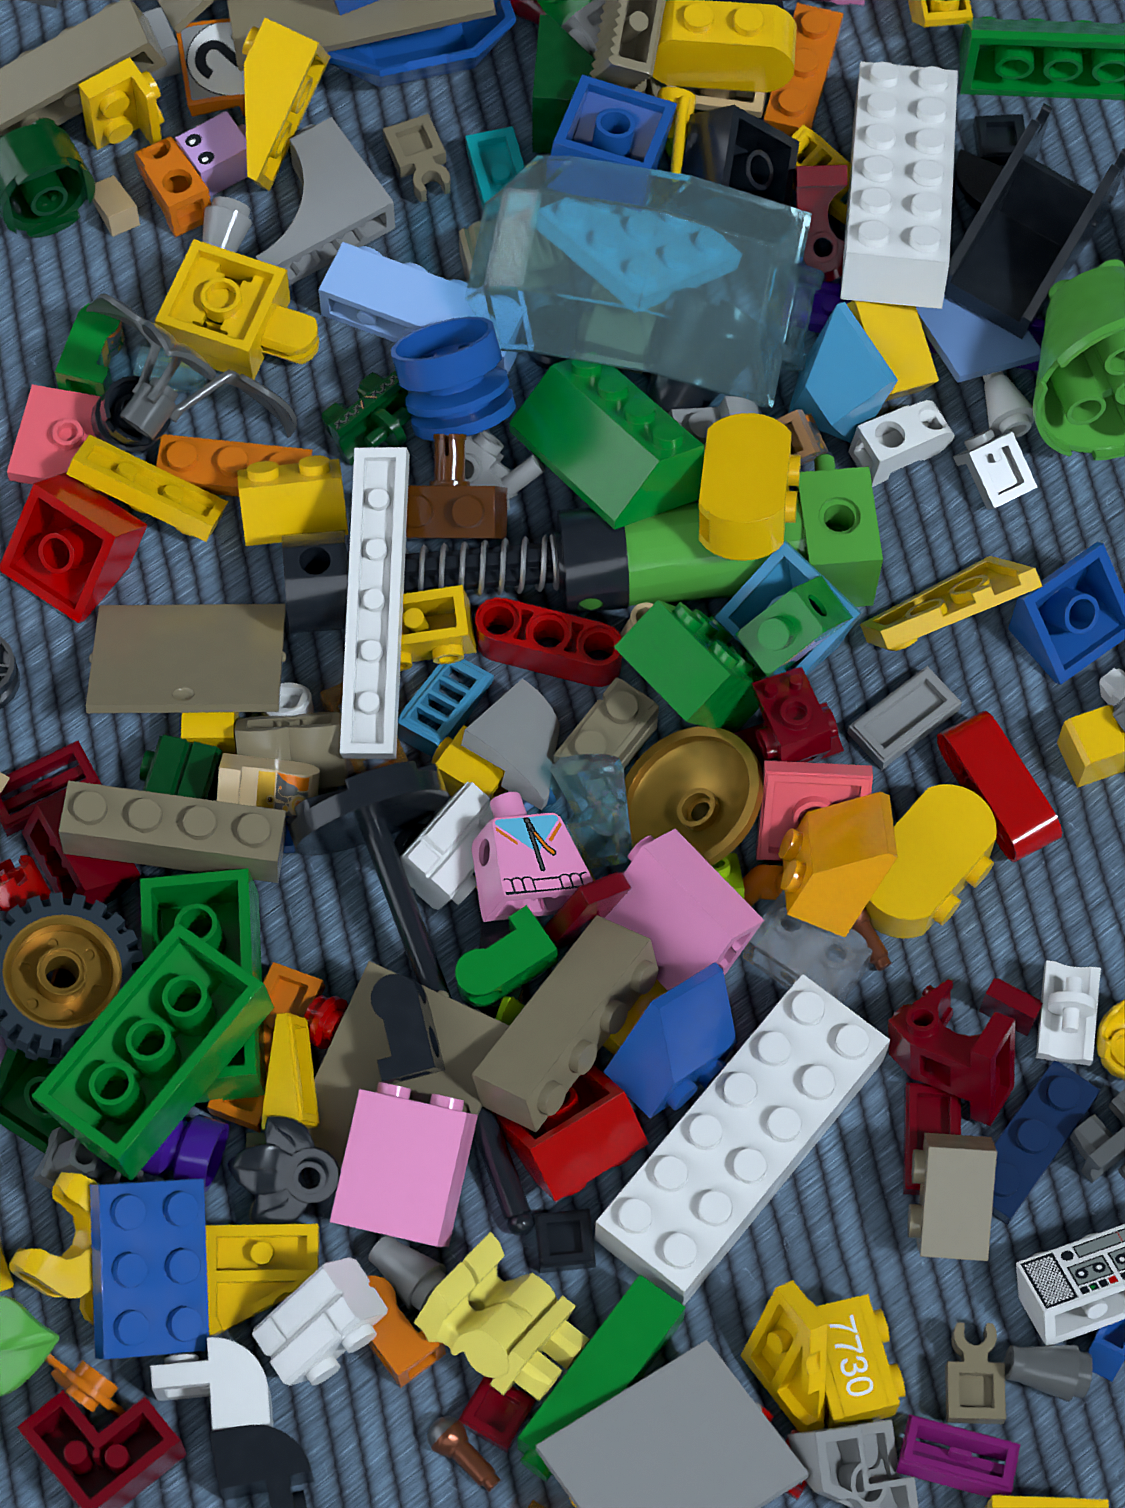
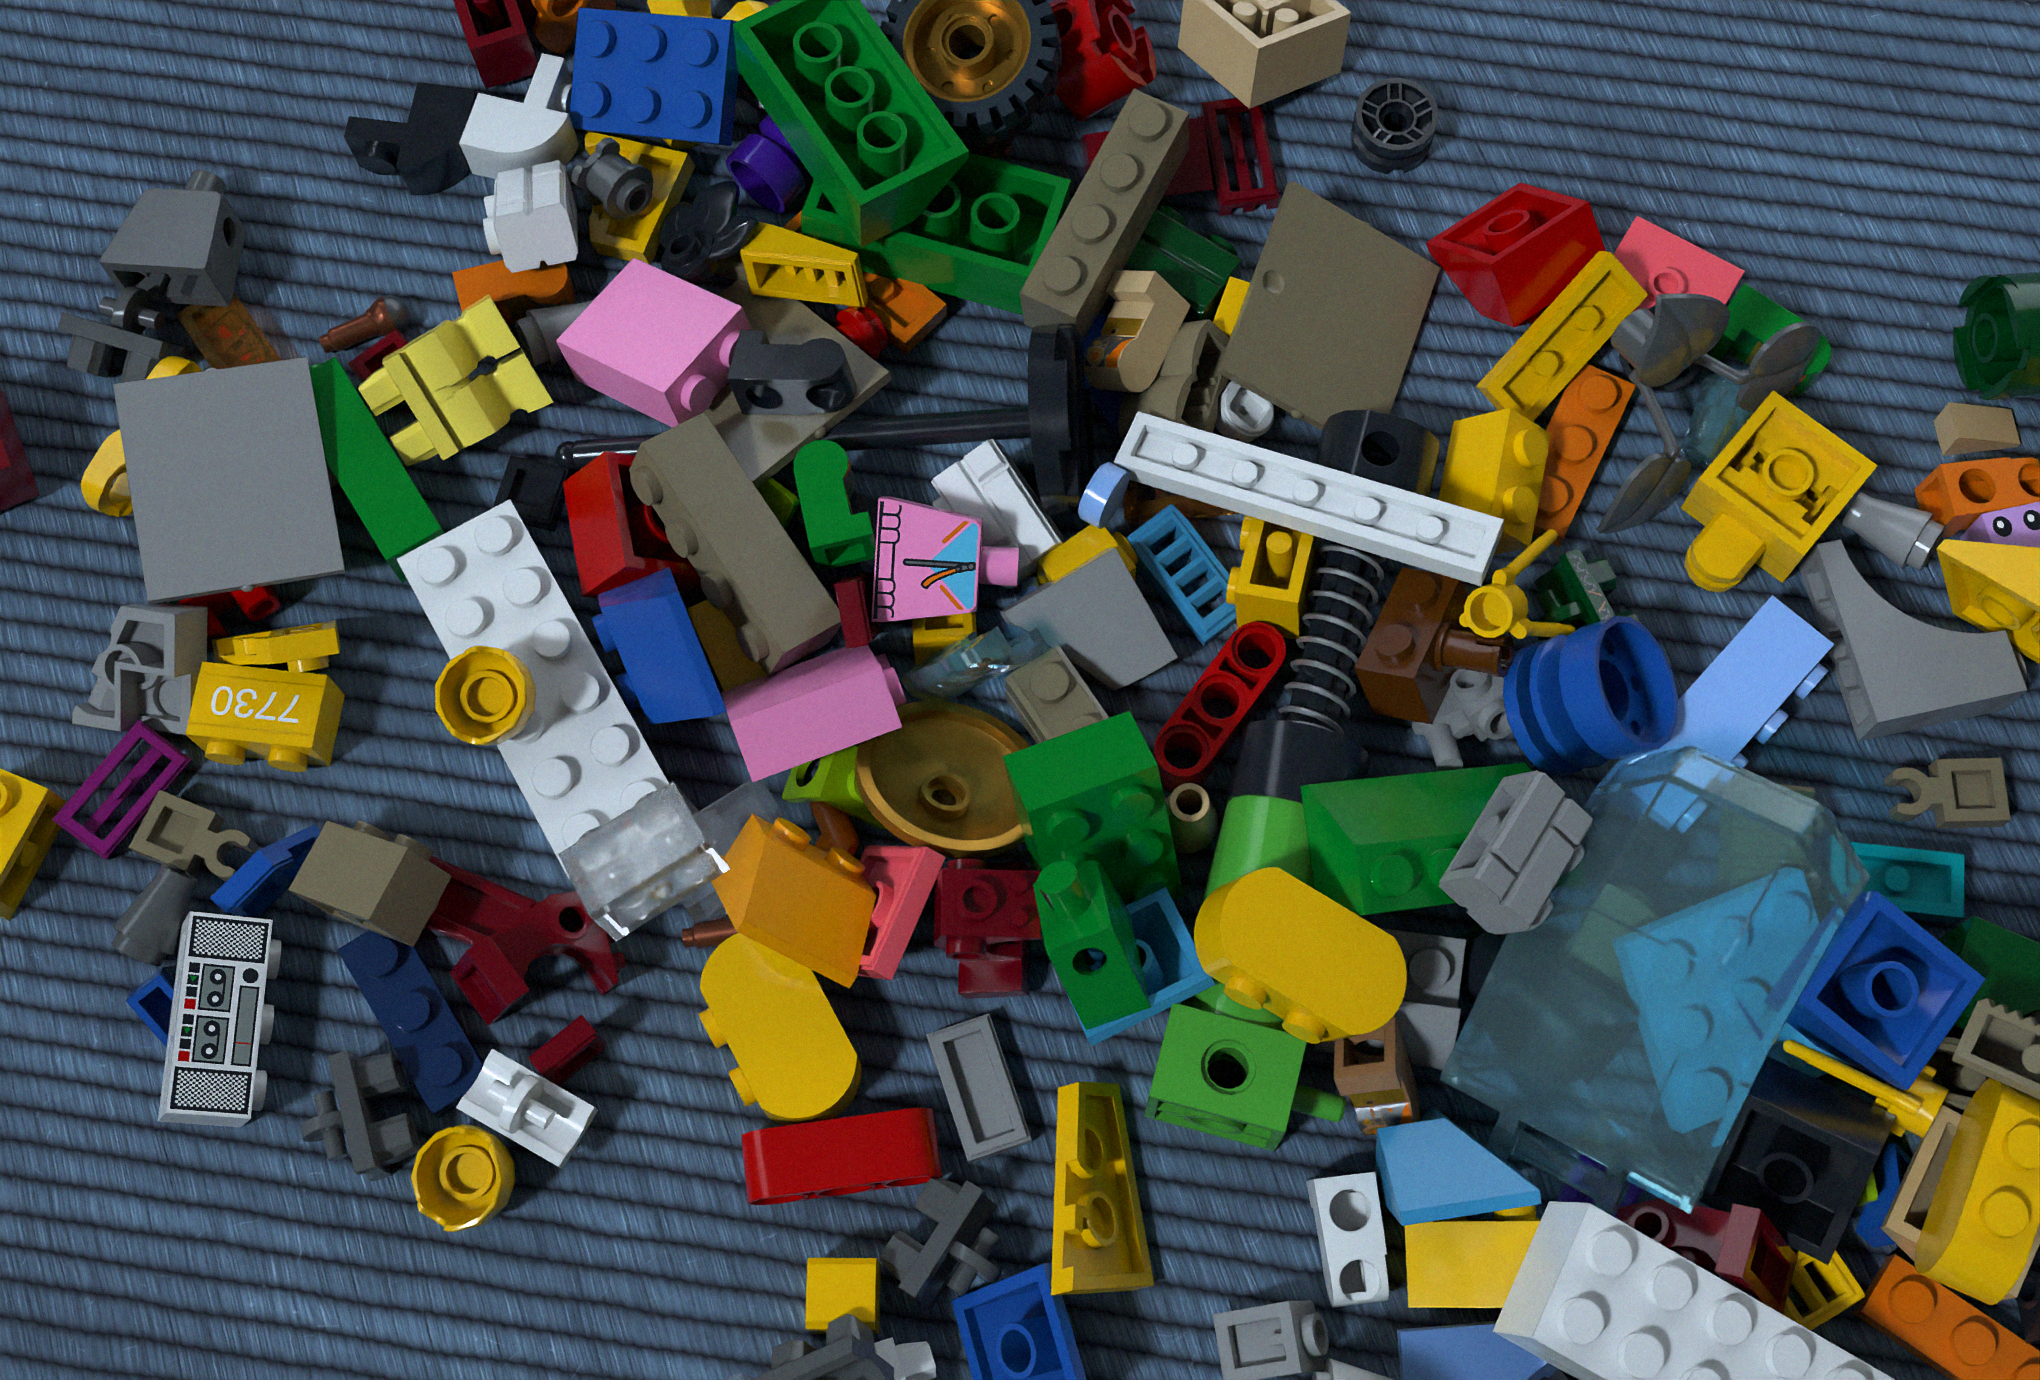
camera: 115 degrees right, 5 degrees up
(265, 1261) = (614, 181): none -> dark grey brick
(420, 439) = (1503, 605): none -> yellow plant
(422, 751) = (1103, 495): none -> light blue tile
(614, 368) = (1517, 854): none -> light grey brick
(785, 1136) = (485, 696): none -> yellow hair
(861, 969) = (643, 861): none -> clear brick
(976, 1299) = (265, 875): none -> blue tile
(1050, 698) = (955, 1248): none -> dark grey hips

